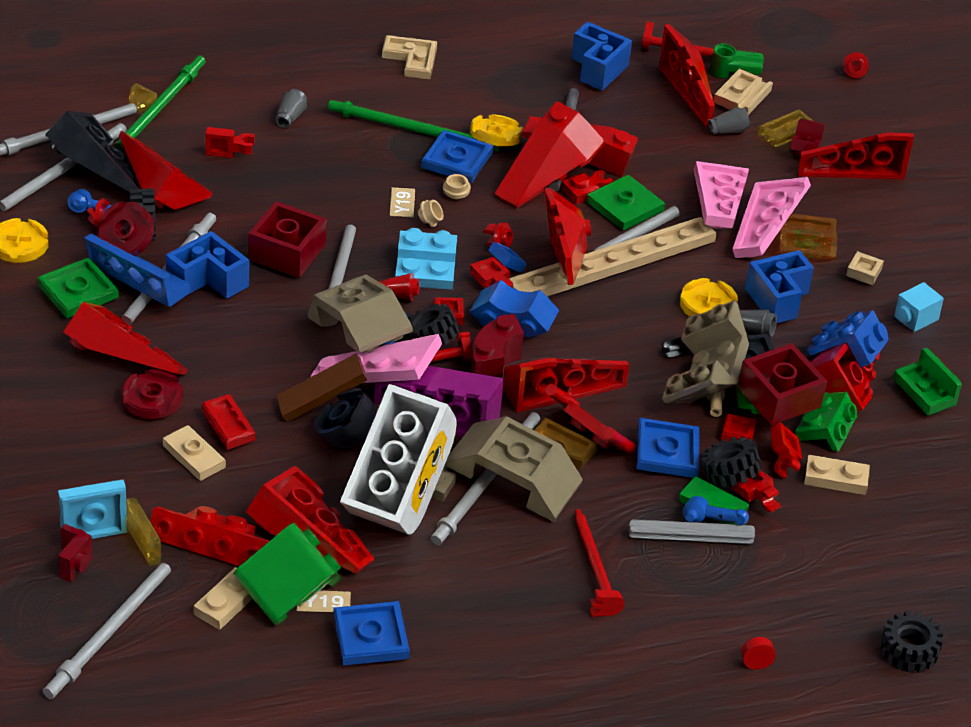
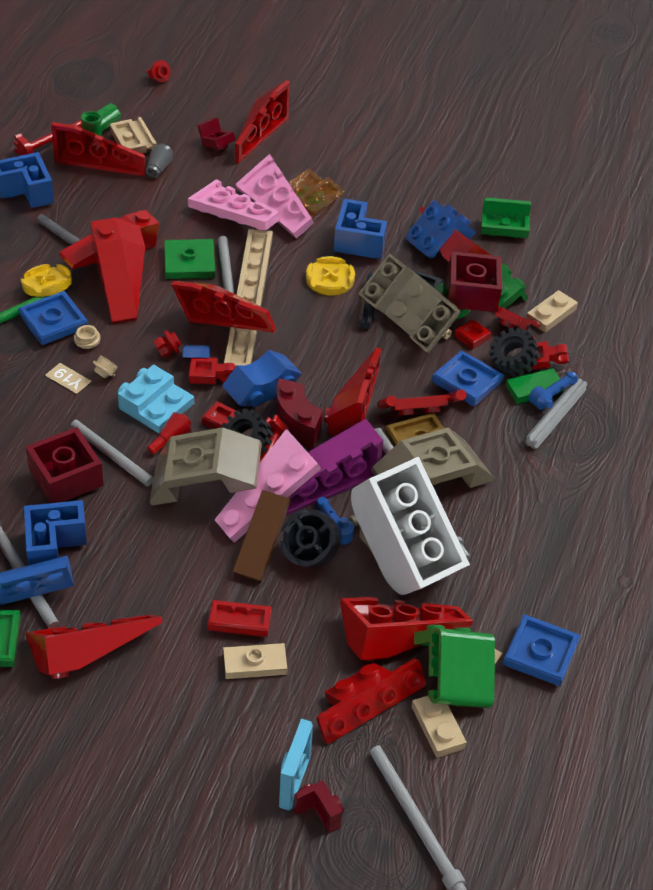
camera: 55 degrees left, 5 degrees up
(143, 532) = (336, 744): clear yellow tile -> none
(152, 394) = (161, 642): dark red plate -> none
(579, 186) = (153, 270): red plate -> none
(607, 601) = (598, 492): red piece -> none
(759, 321) = (373, 263): dark grey cone -> none
(783, 134) = (187, 149): clear yellow tile -> none
(865, 268) = (367, 184): tan plate -> none
(918, 307) = (428, 182): medium azure brick -> none

